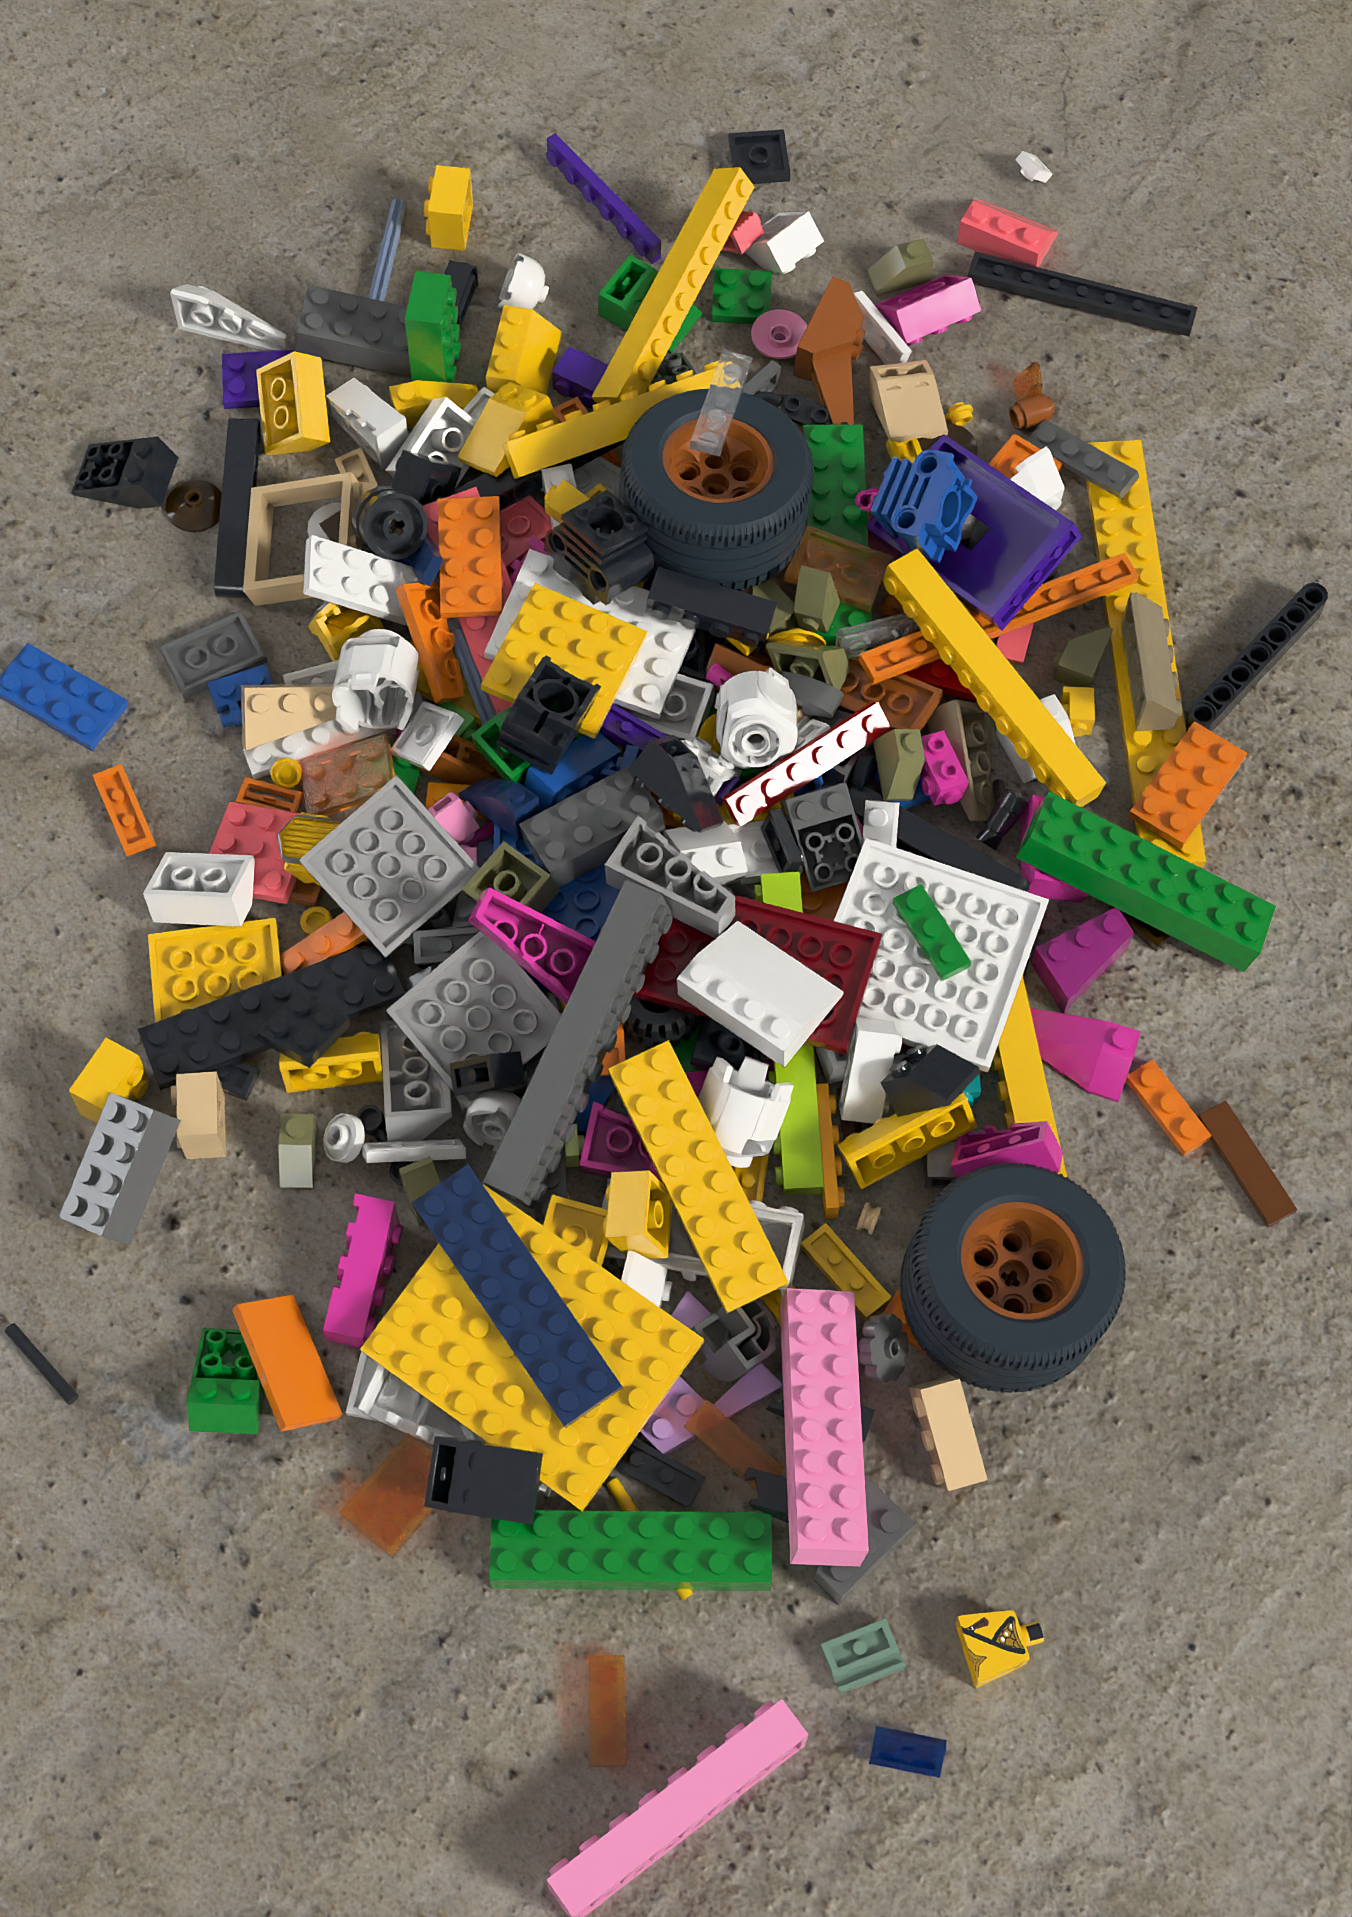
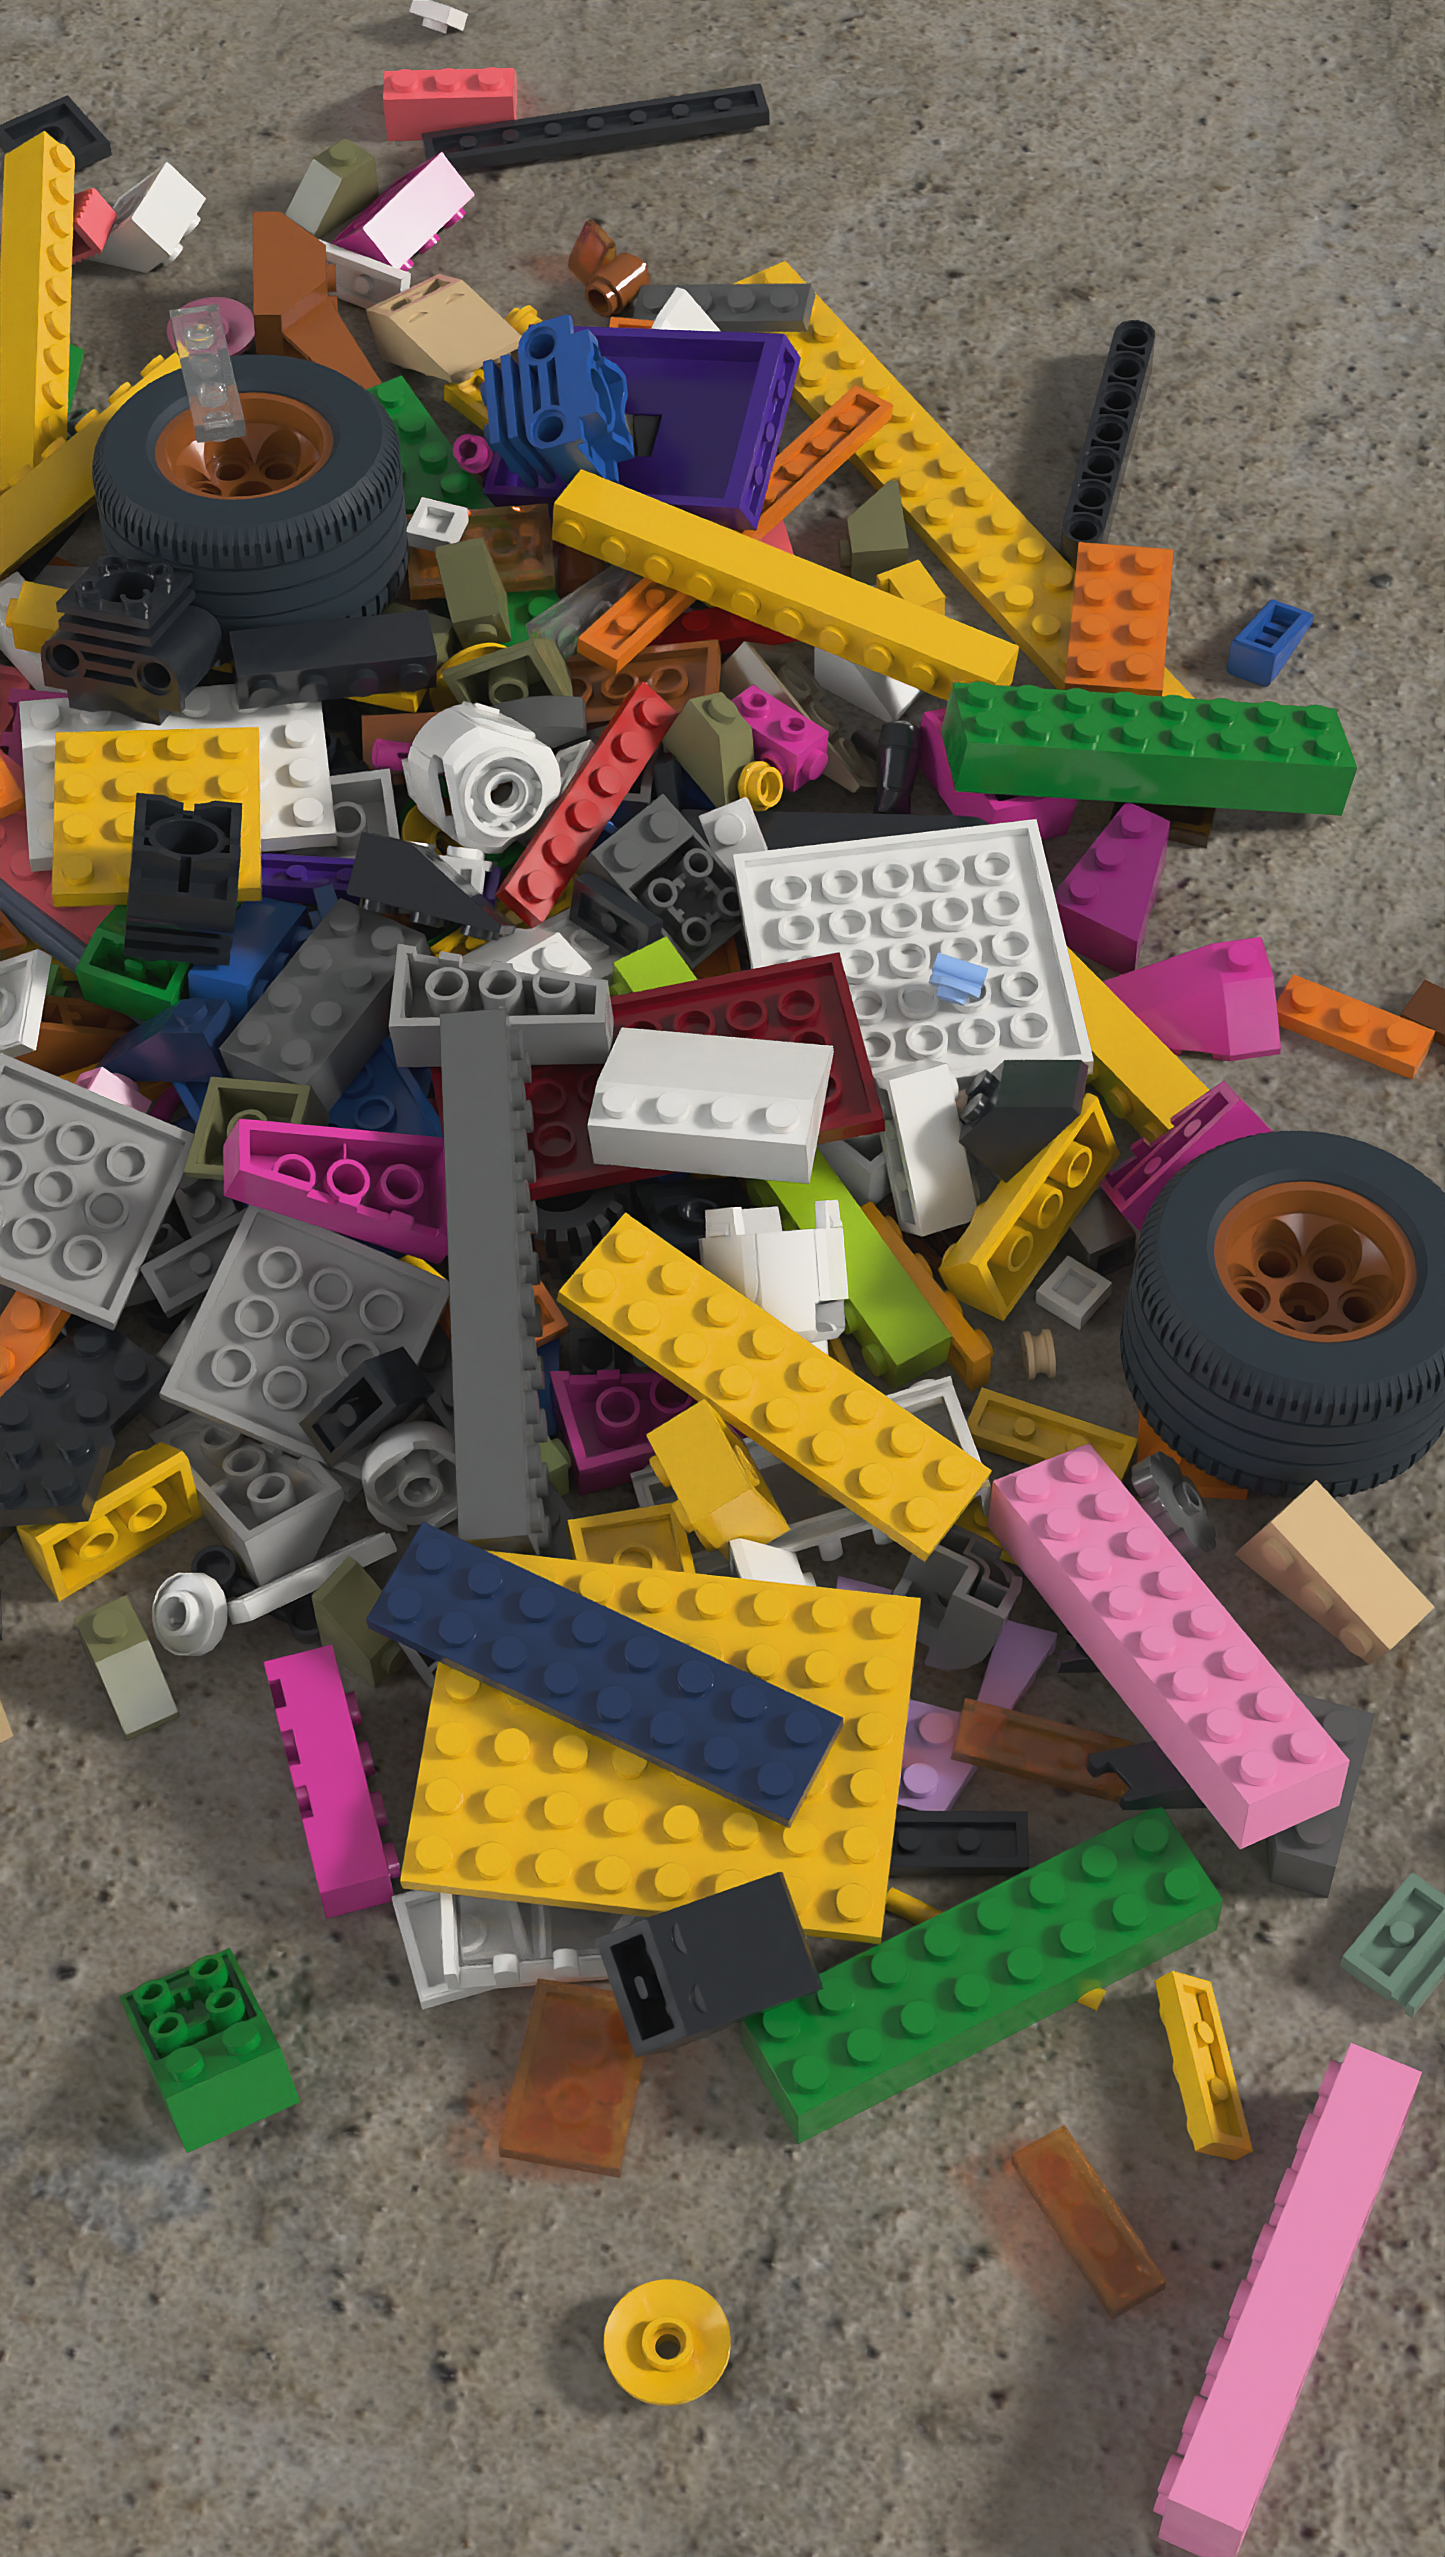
camera: 25 degrees left, 10 degrees down
(287, 1362) = (288, 1971): orange tile -> none
(360, 1640) = (663, 2313): none -> yellow dish
(714, 1662) = (1203, 2066): none -> yellow plate
(740, 295) = (125, 311): green plate -> none
(818, 544) = (436, 524): none -> white plate
(910, 1191) = (1073, 1292): none -> white plate
(913, 796) = (760, 785): none -> yellow plate
(931, 932) = (899, 923): green plate -> none
(939, 982) = (957, 979): none -> light blue plate
(1150, 665) = (975, 500): dark tan slope -> none
(1258, 846) = (1265, 647): none -> blue slope

